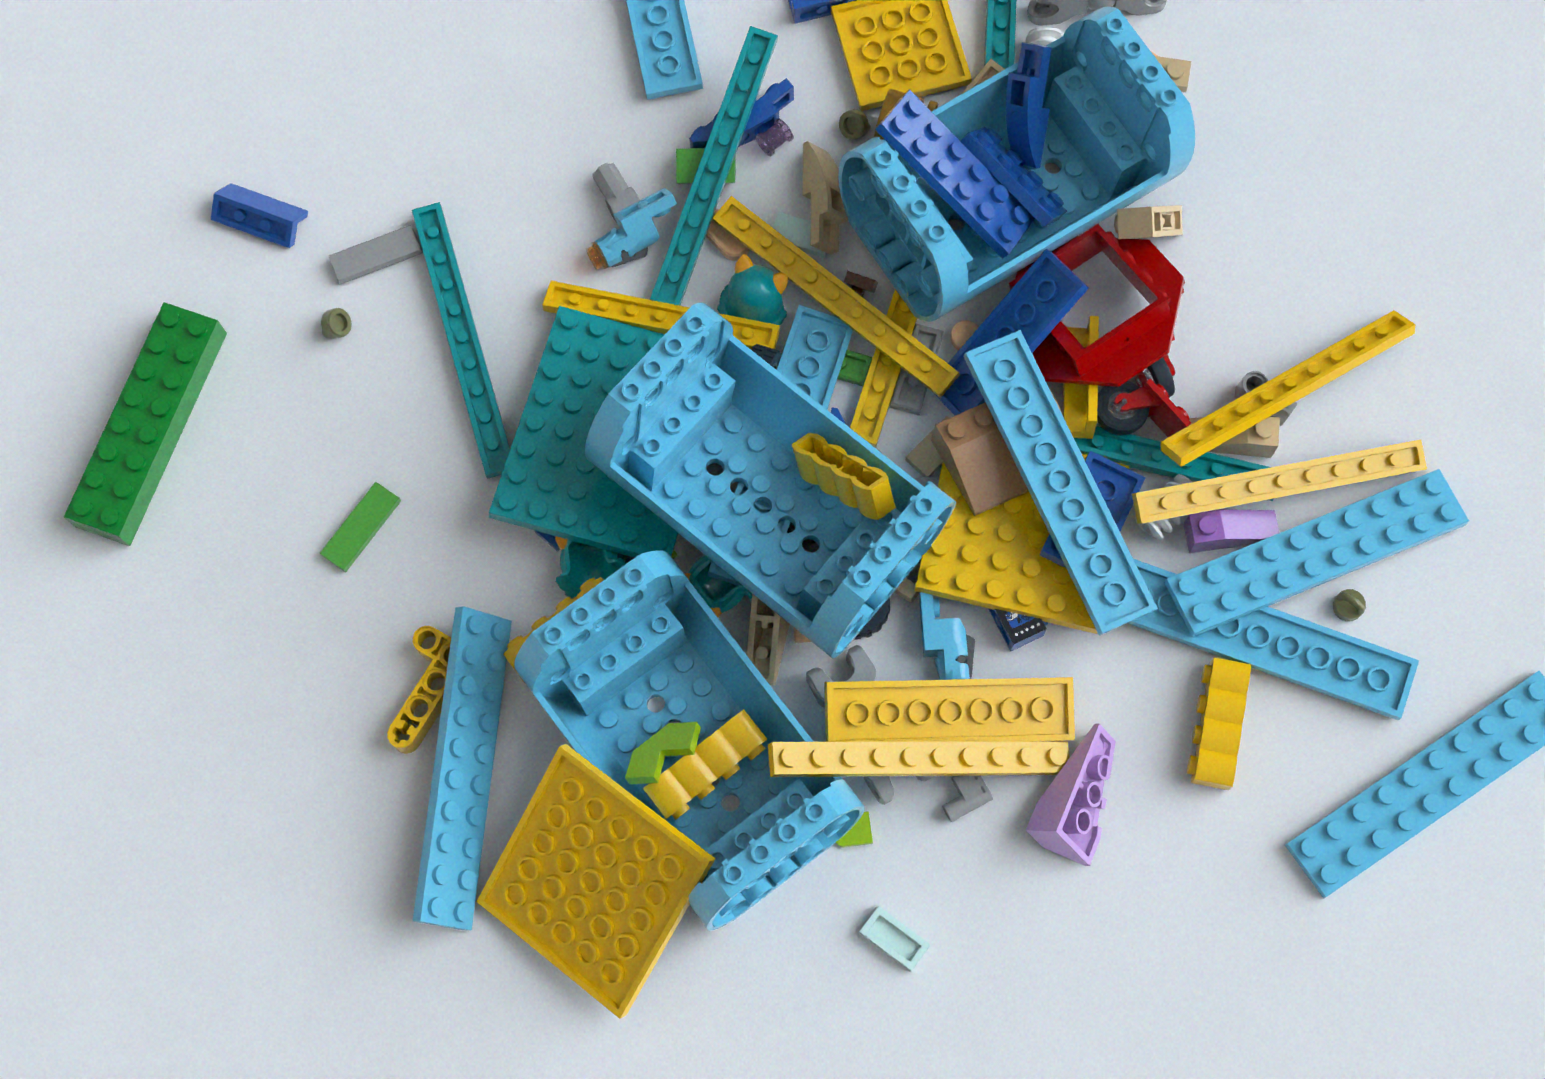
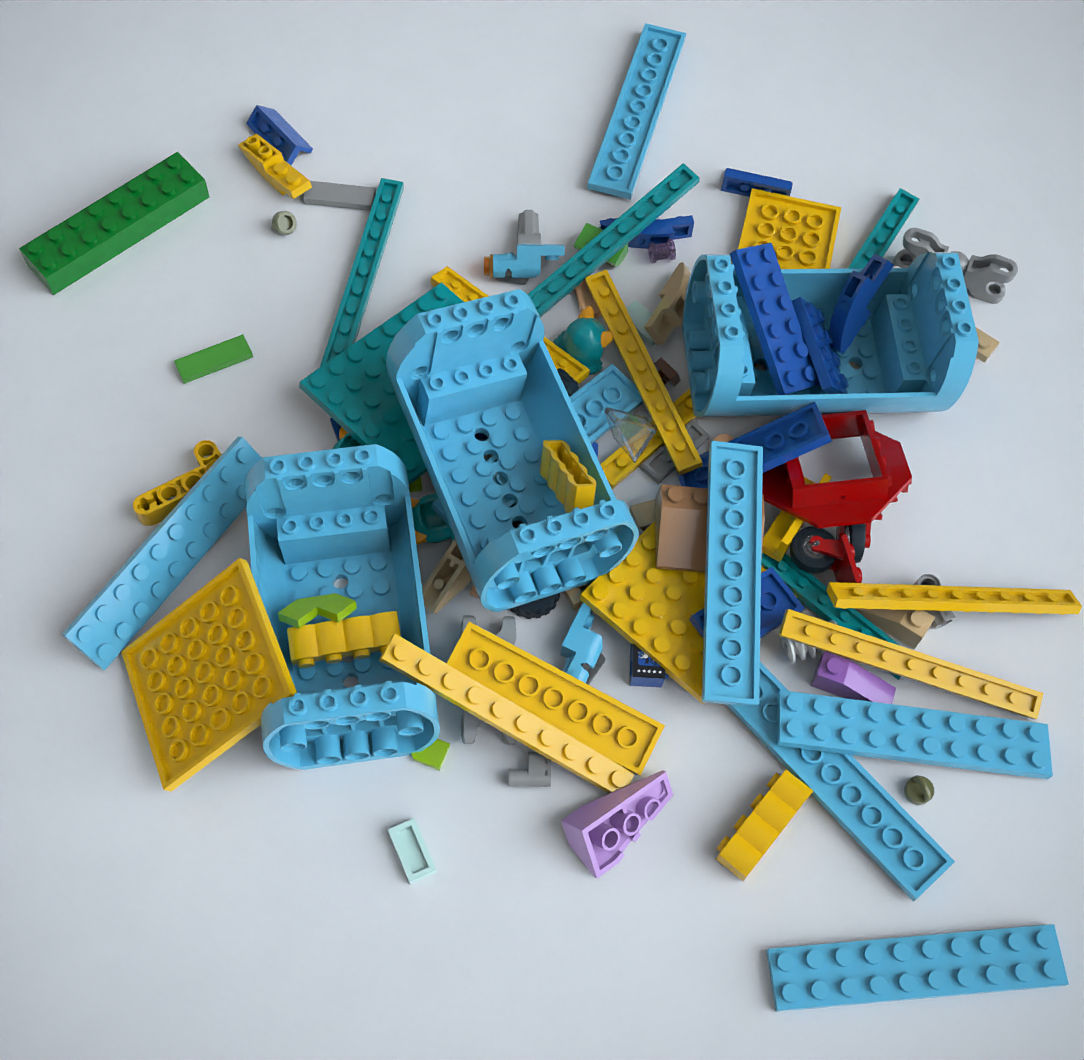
camera: 20 degrees right, 10 degrees down
(281, 261) = (273, 168): none -> yellow slope
(864, 374) = (630, 431): none -> clear slope
(1148, 222) = (907, 429): tan slope -> none

